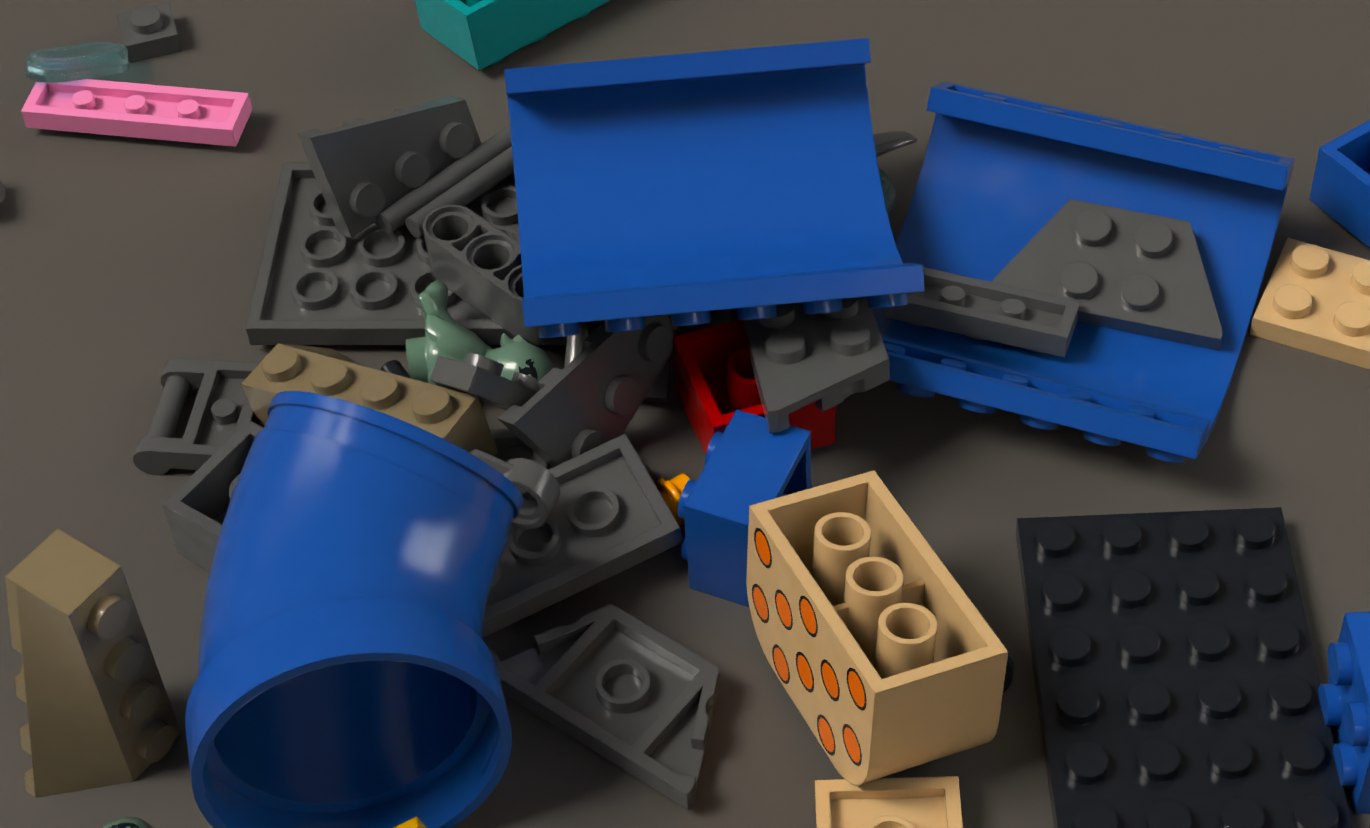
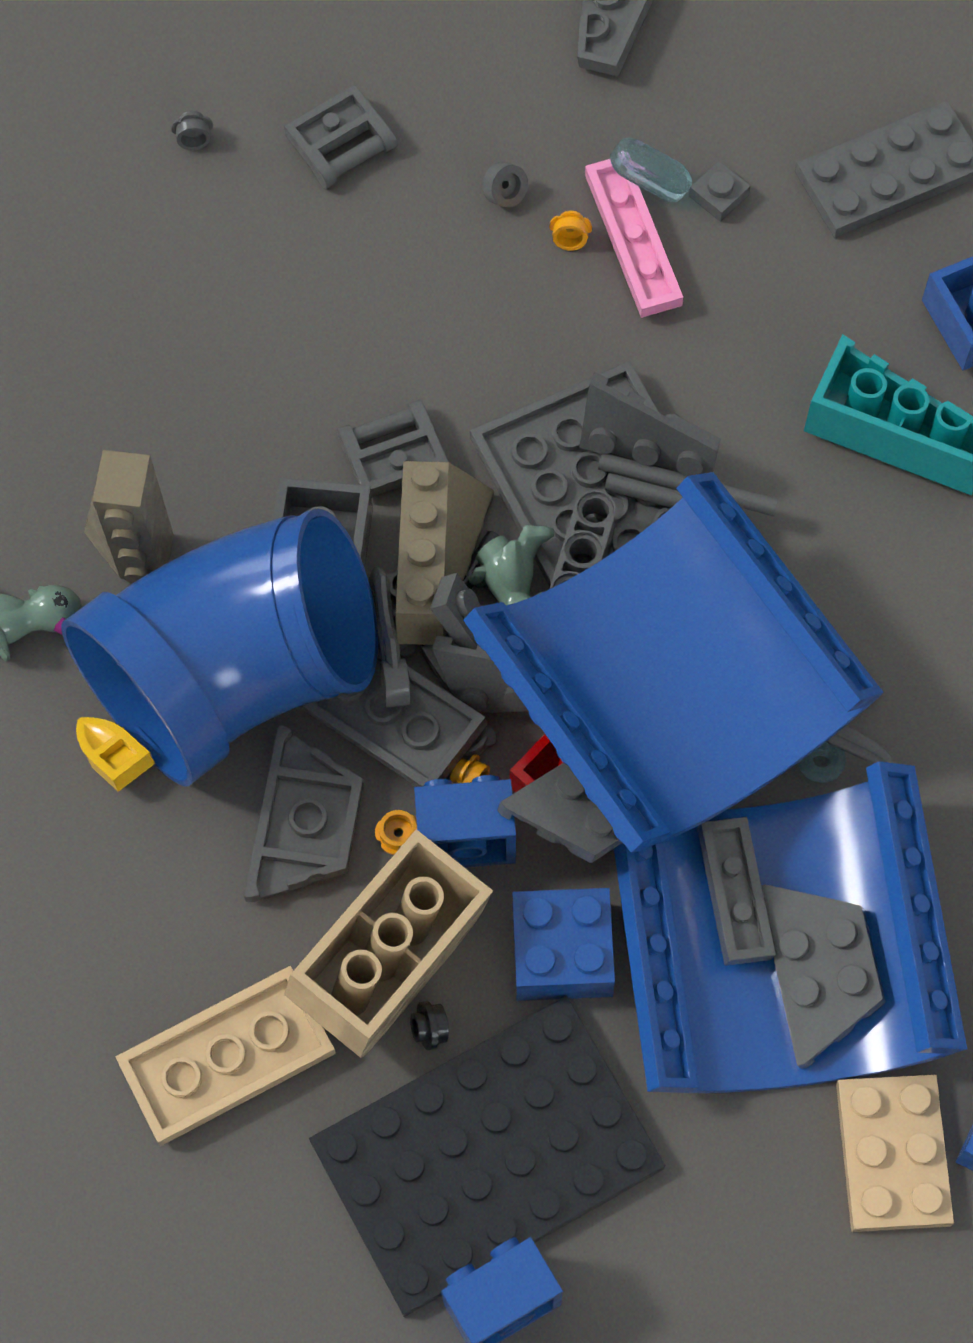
camera: 60 degrees right, 20 degrees up
(81, 158) = (570, 230): none -> light orange plate
(701, 590) = (389, 823): none -> light orange plate
(962, 484) = (563, 944): none -> blue brick

